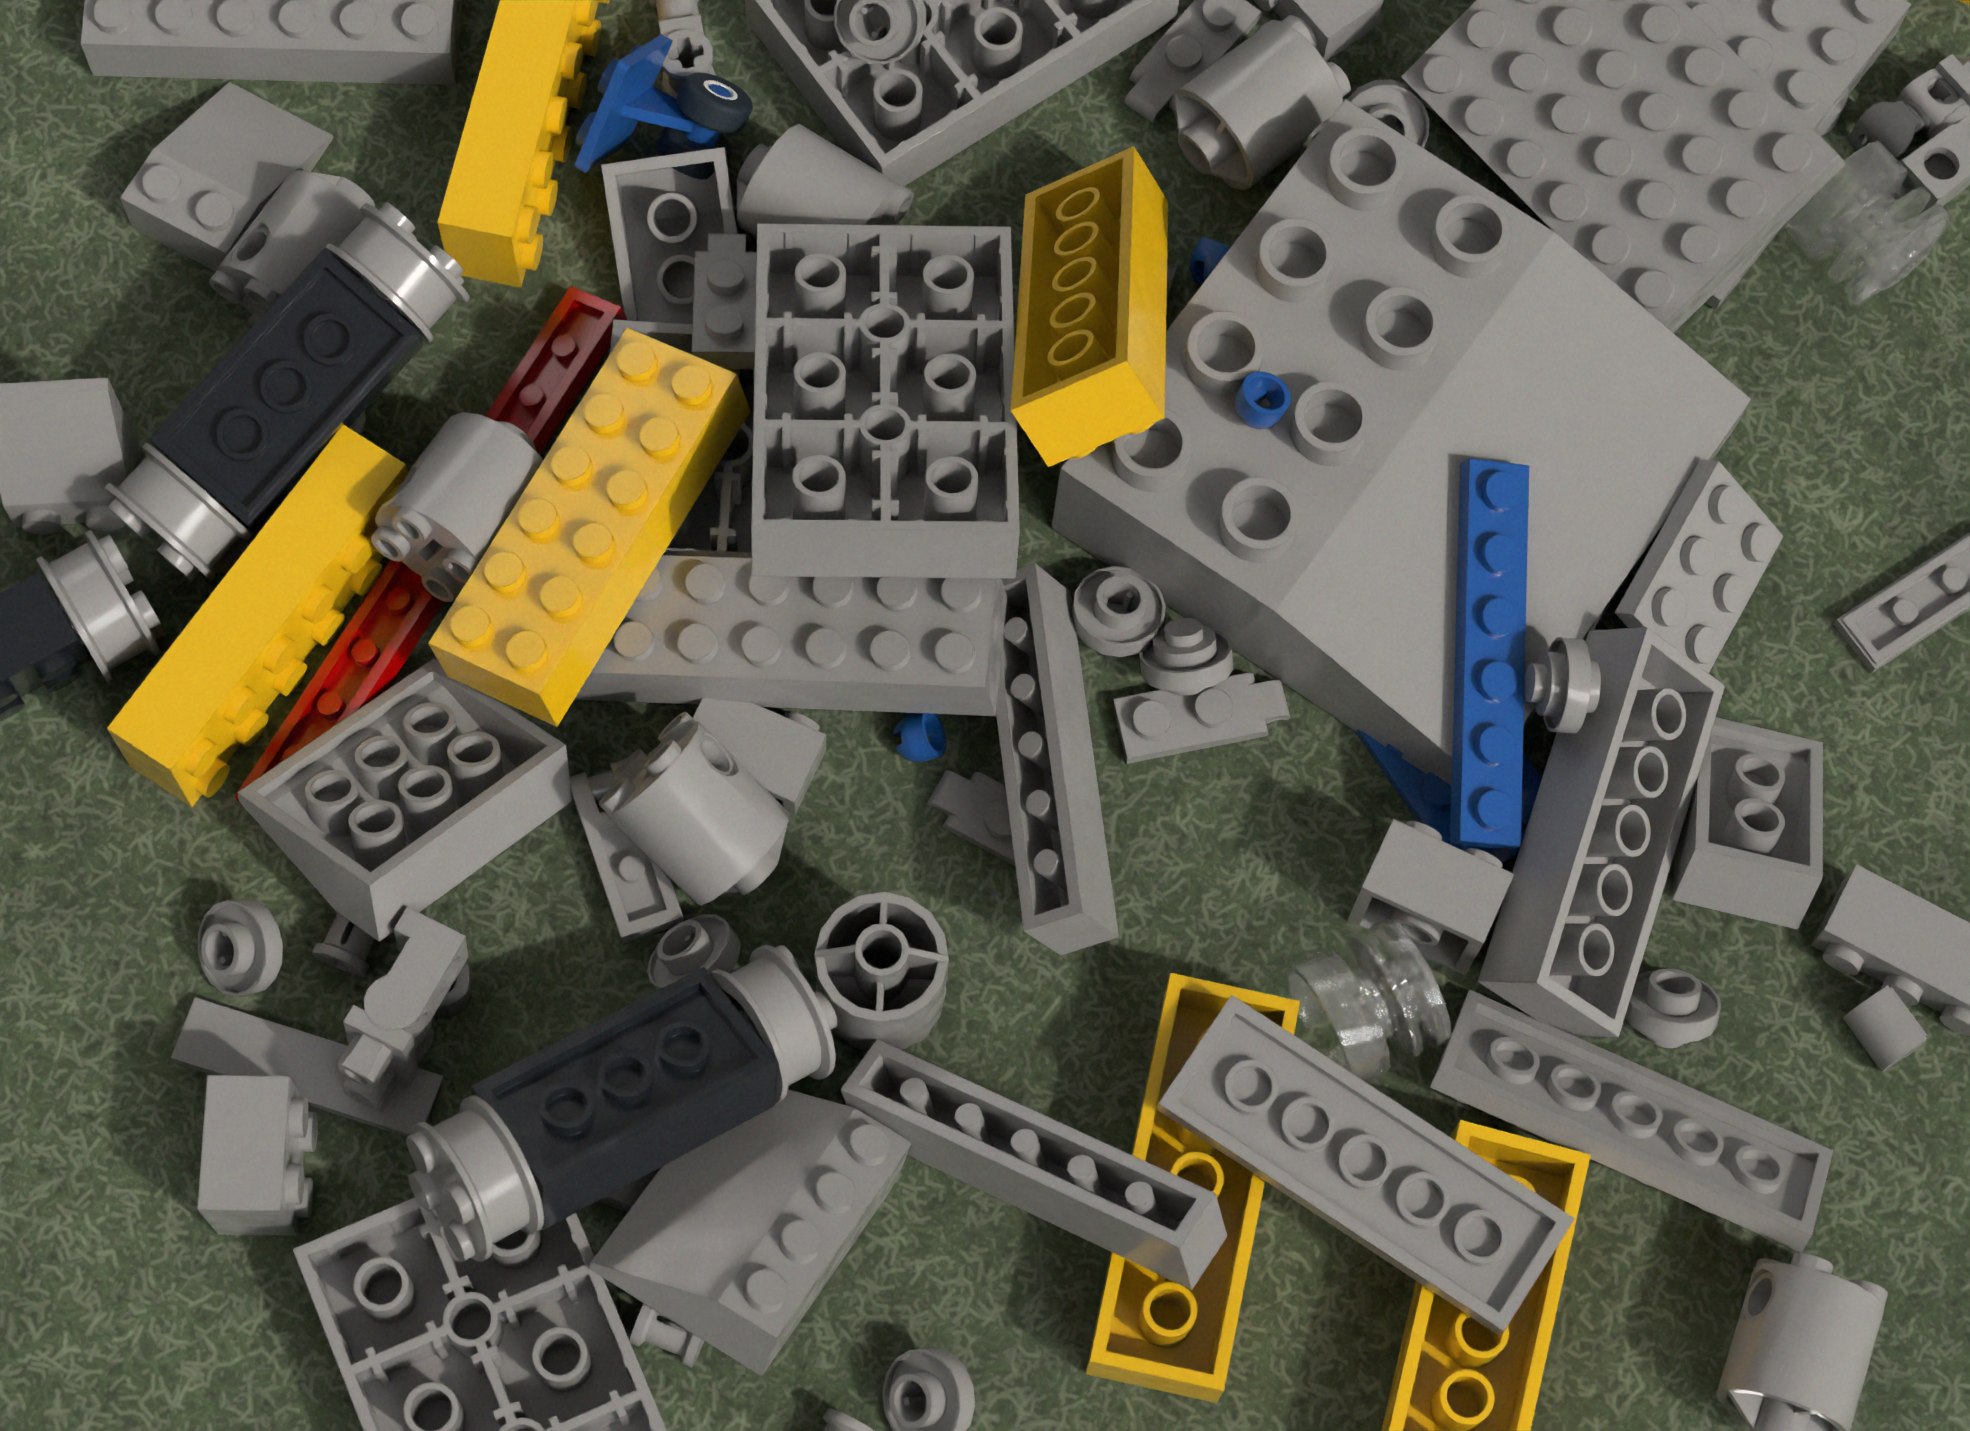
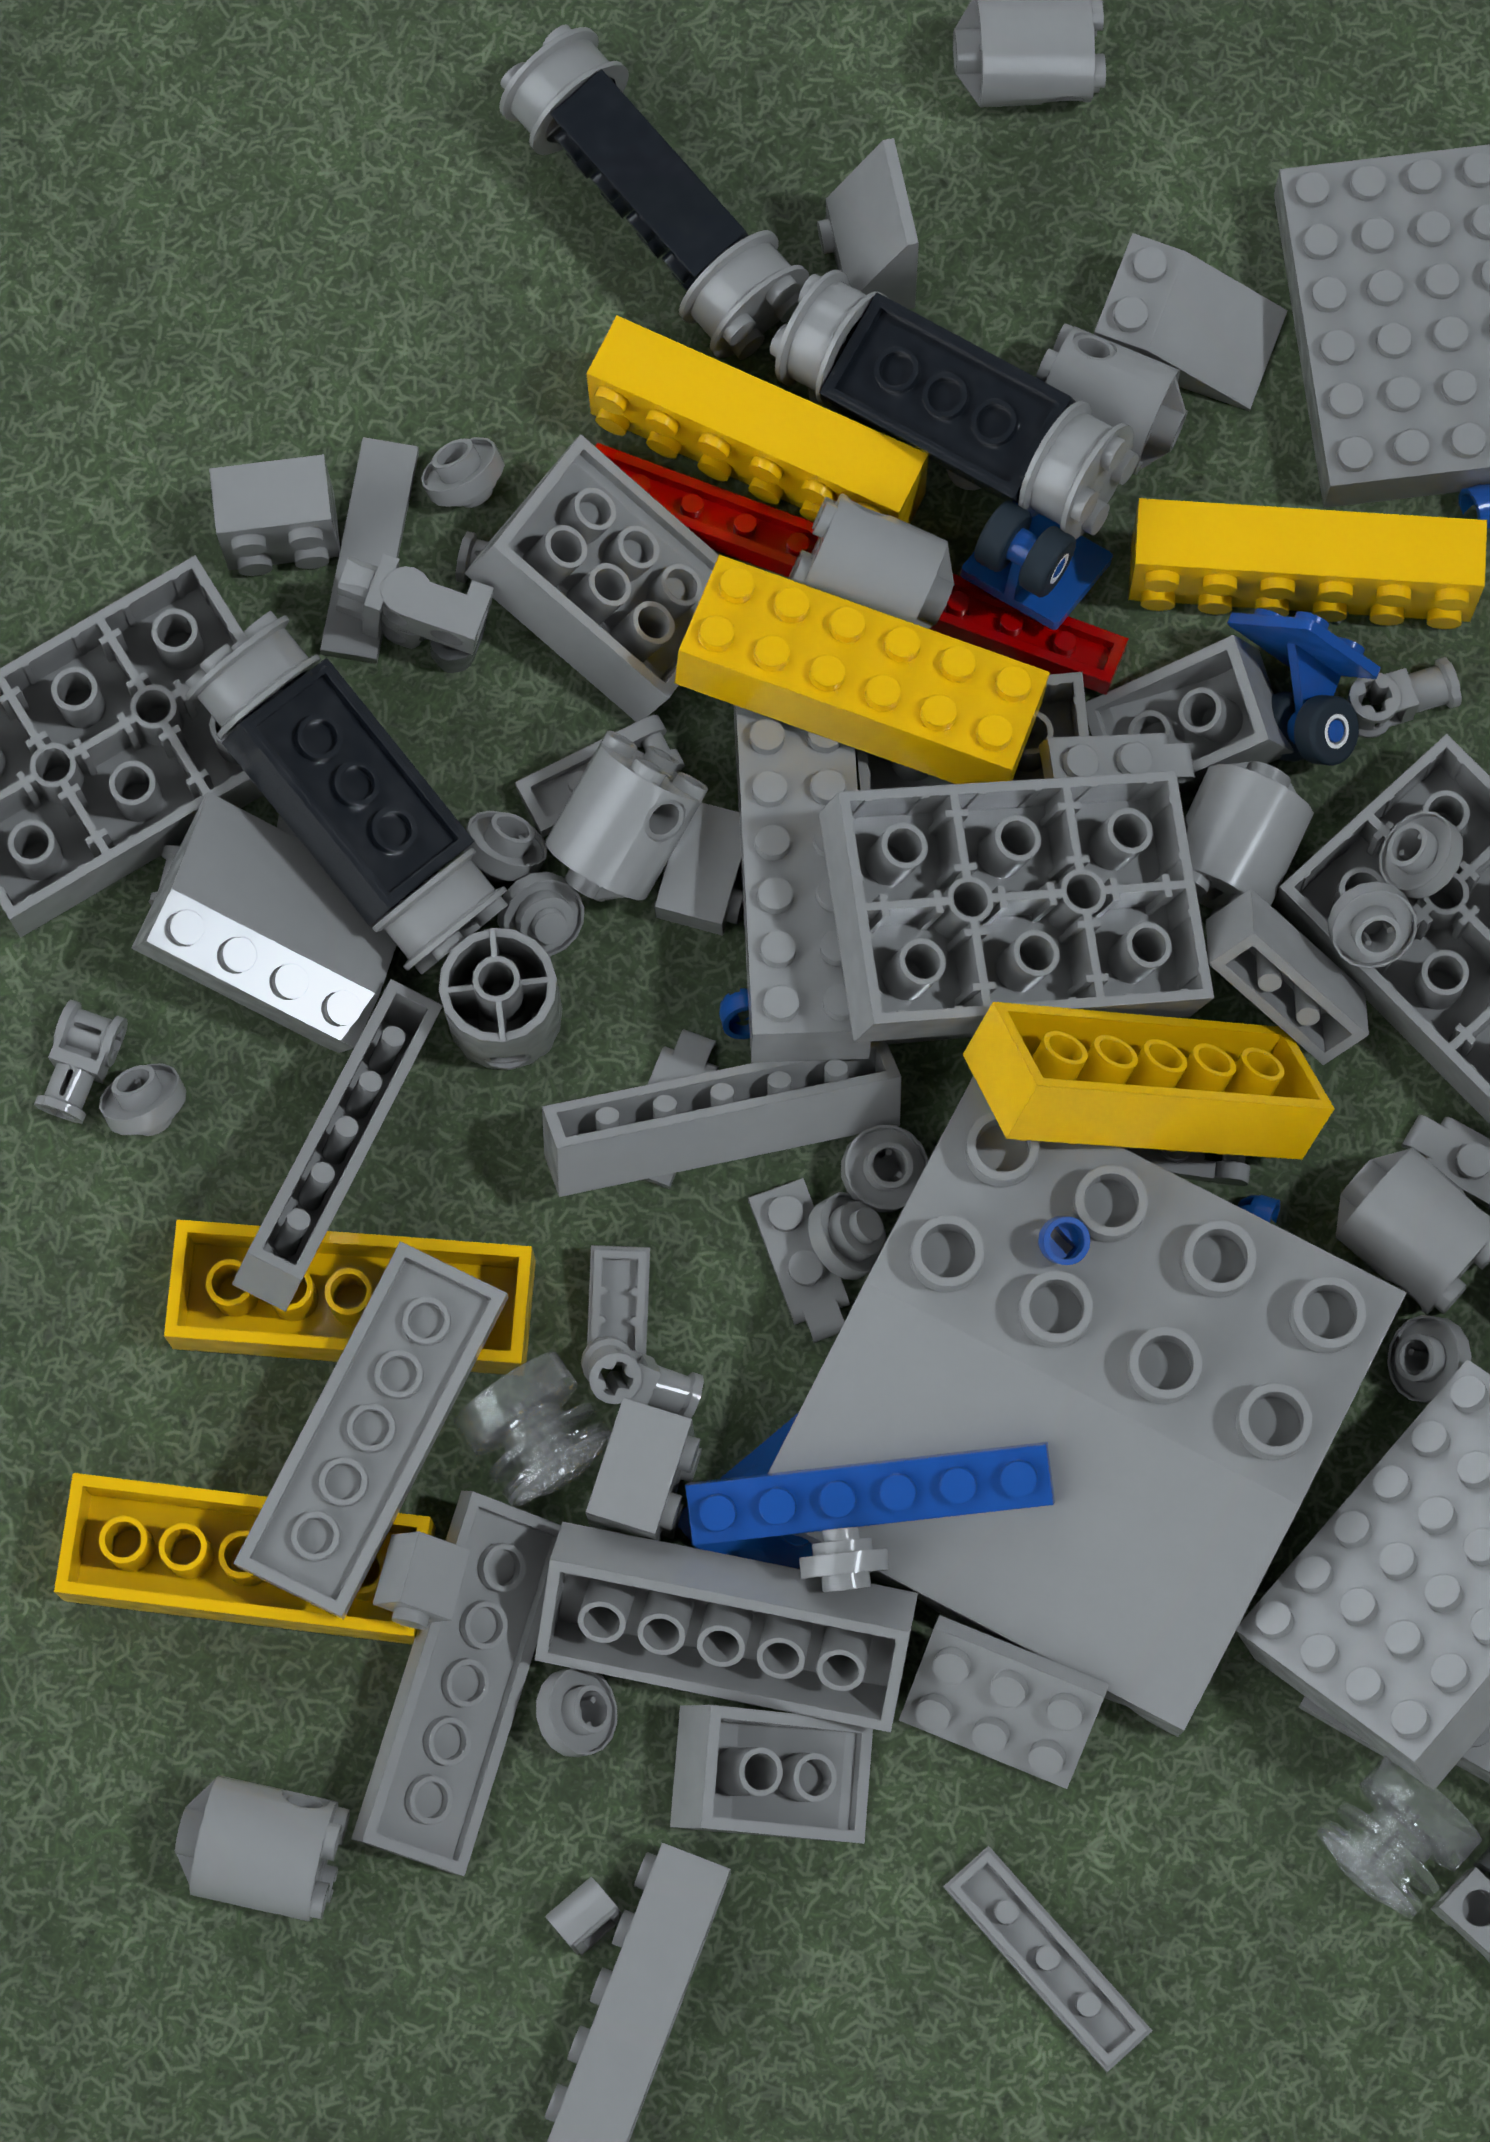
camera: 90 degrees right, 5 degrees up
(473, 358) = (1034, 564): none -> plate
(780, 916) = (544, 910): none -> light grey plate
(947, 74) = (1372, 925): none -> light grey plate
(982, 172) = (1286, 977): none -> light grey brick
(1229, 908) = (619, 1294): none -> light grey plate
(1320, 896) = (639, 1379): none -> light grey connector
(1541, 1128) = (421, 1579): none -> light grey brick

